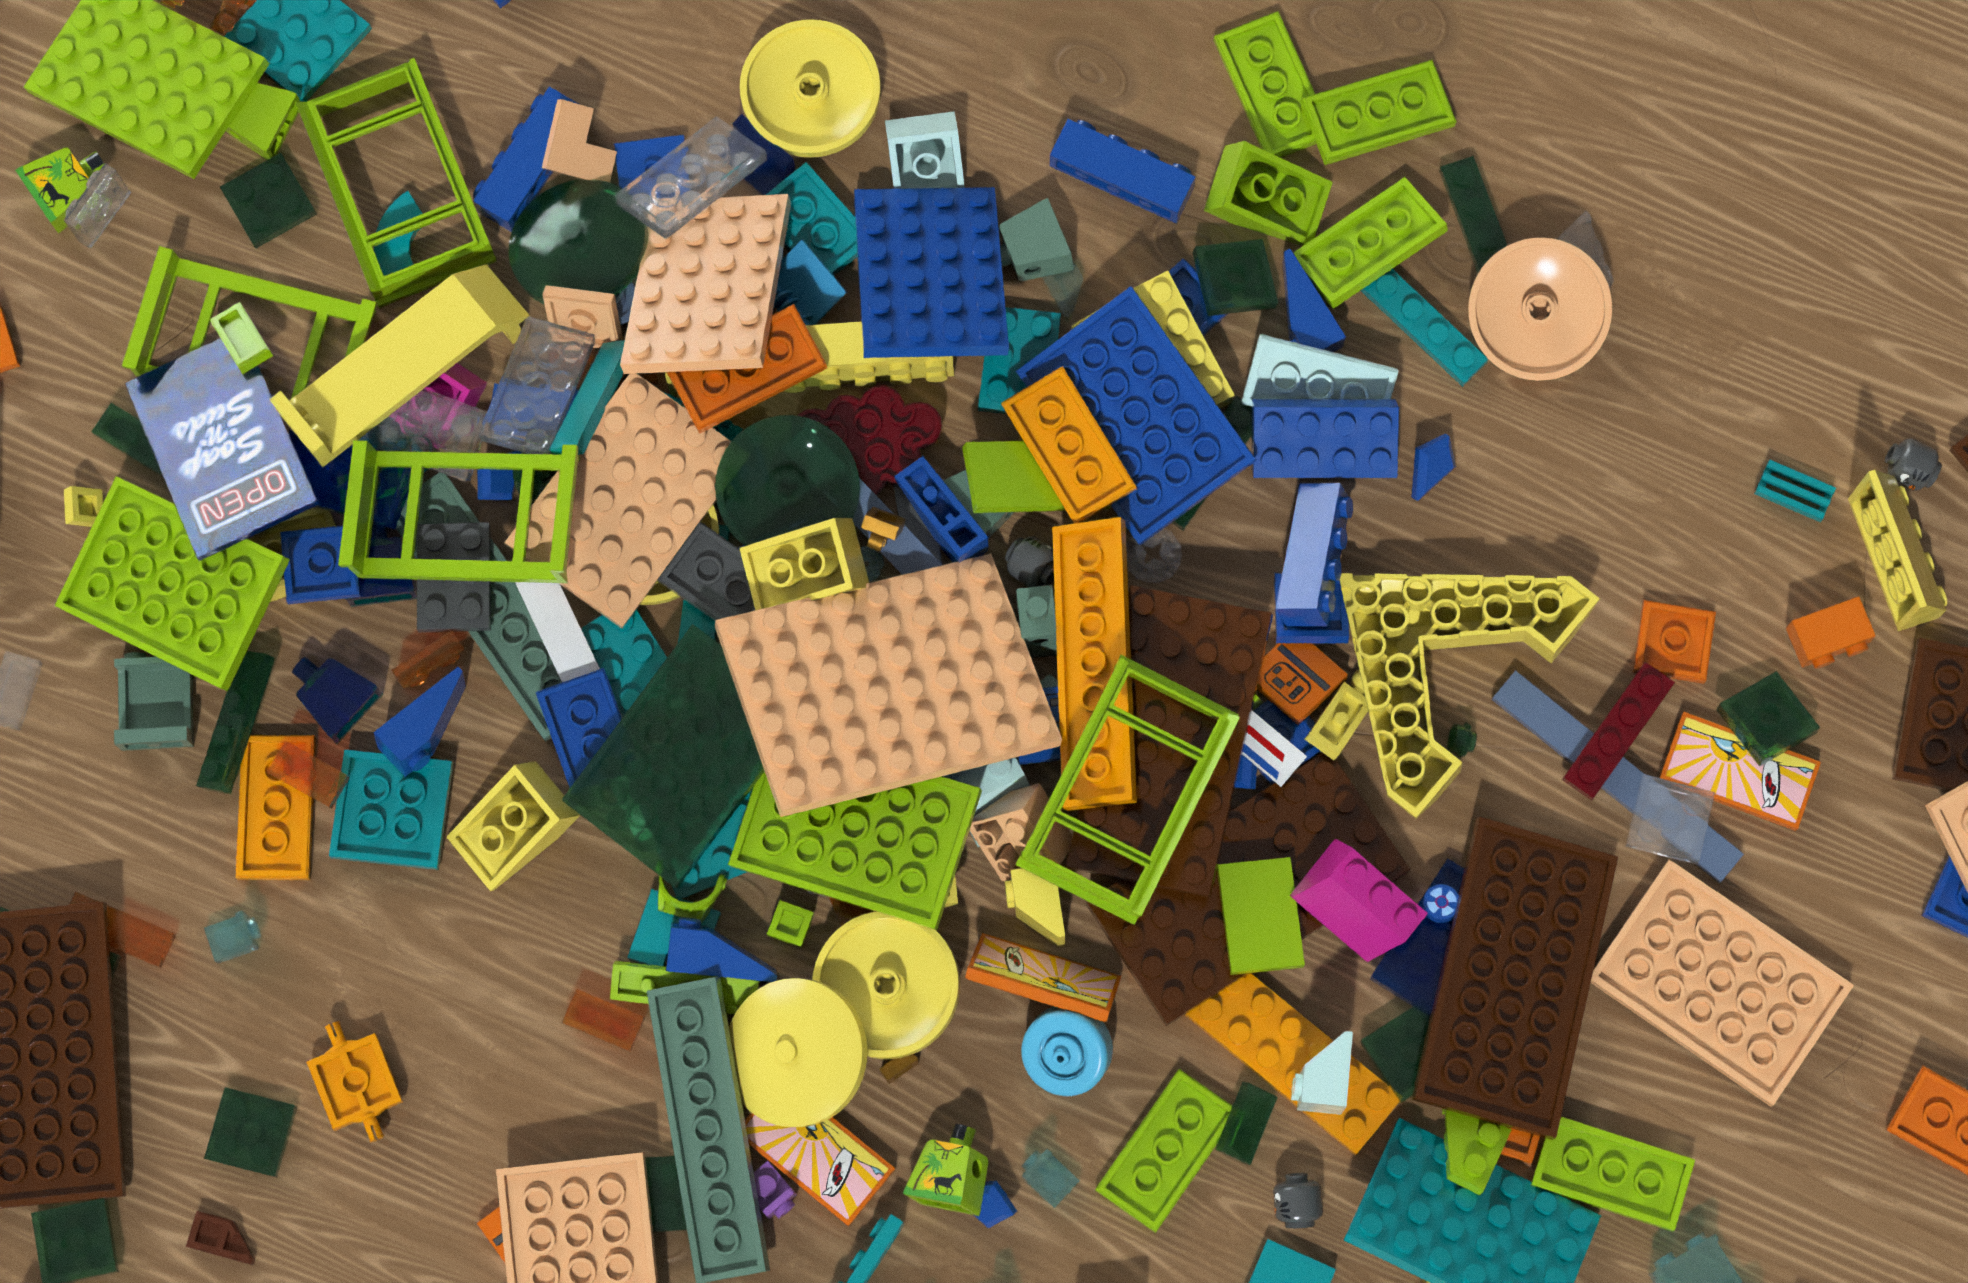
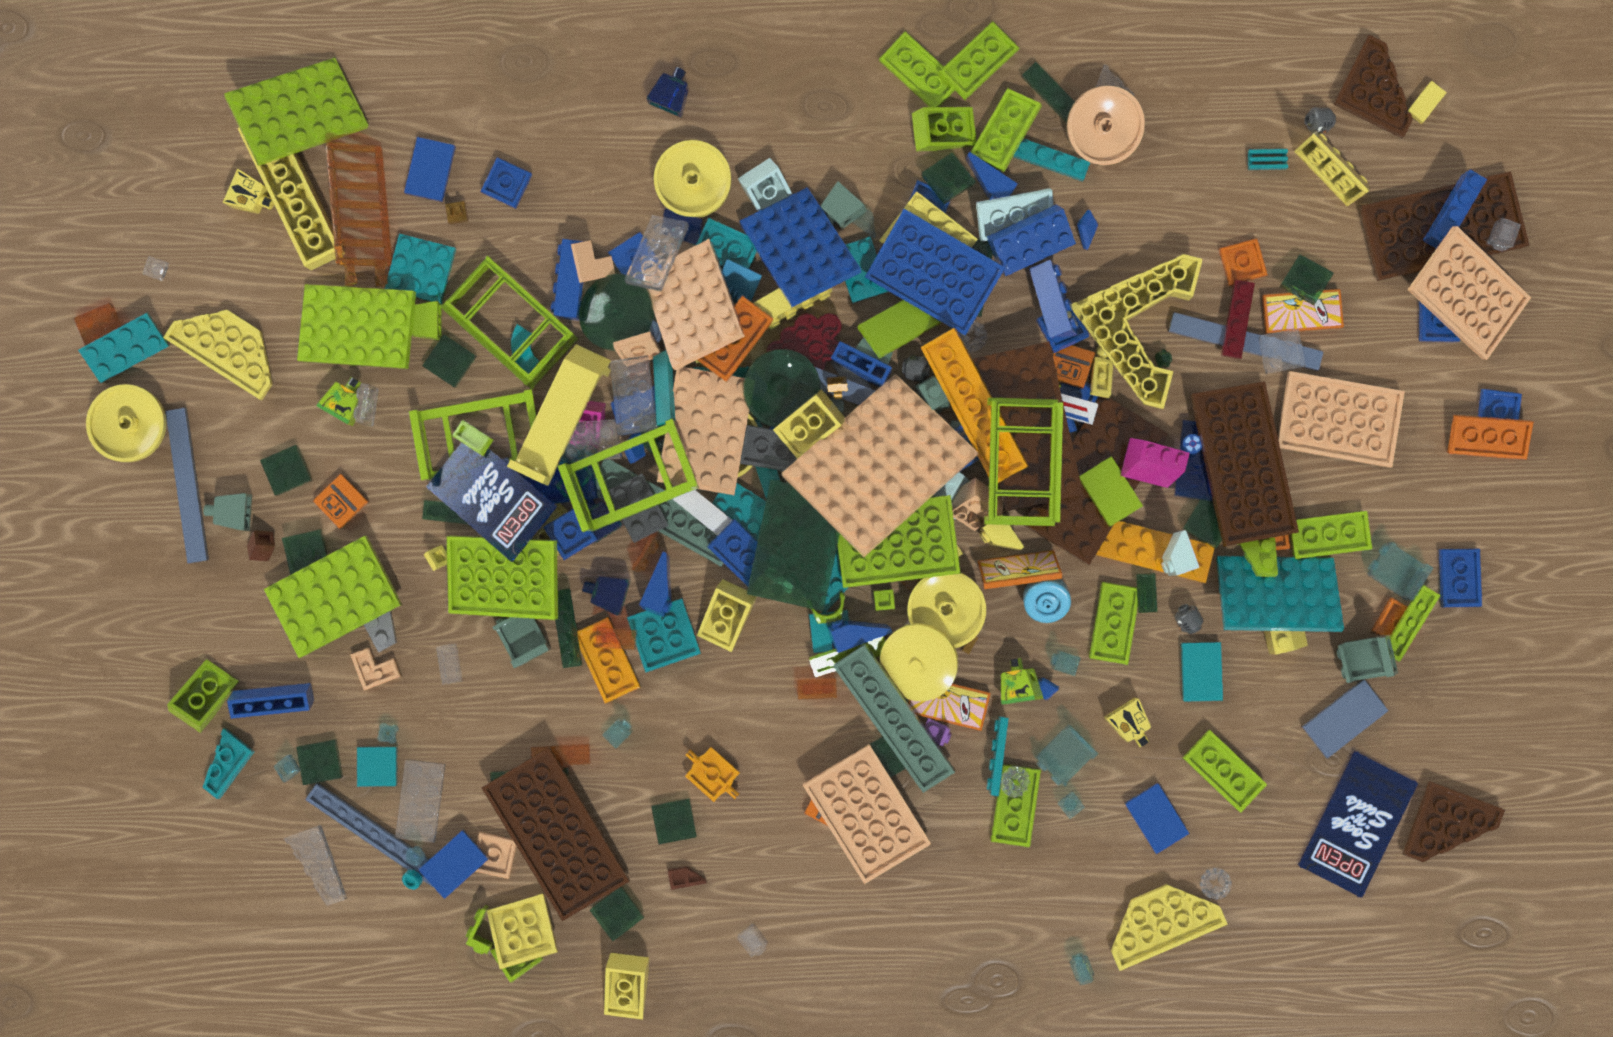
camera: 25 degrees left, 10 degrees up
(1069, 446) = (909, 302): light orange tile -> none
(1122, 170) = (866, 149): blue brick -> none
(1831, 633) = (1318, 222): orange brick -> none

